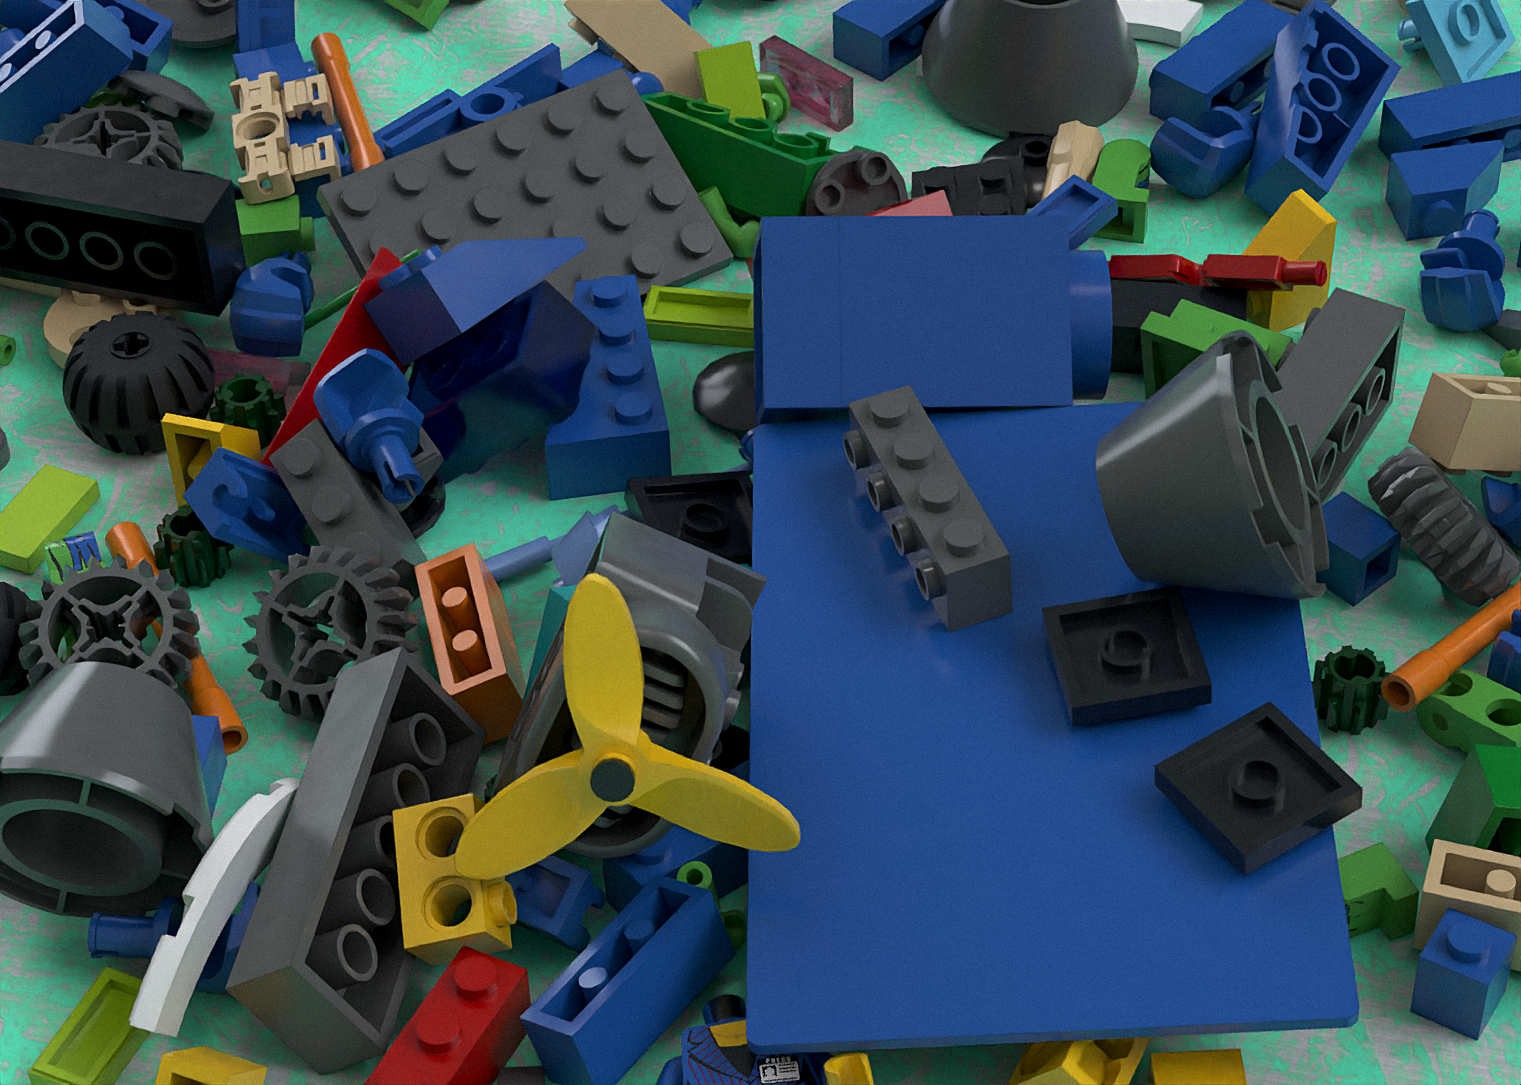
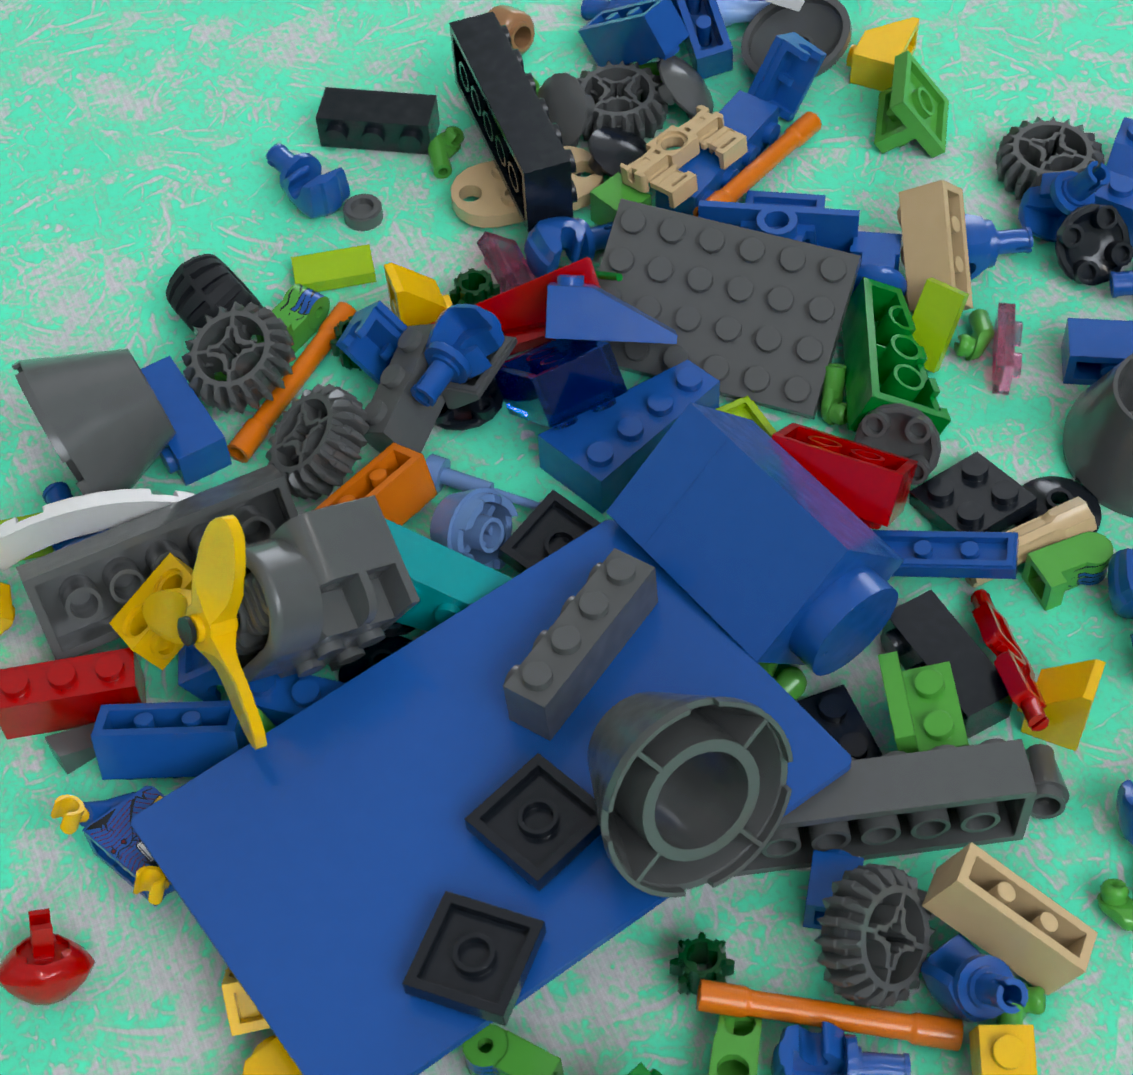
camera: 55 degrees right, 10 degrees up
(131, 375) = (447, 234): black wheel -> none

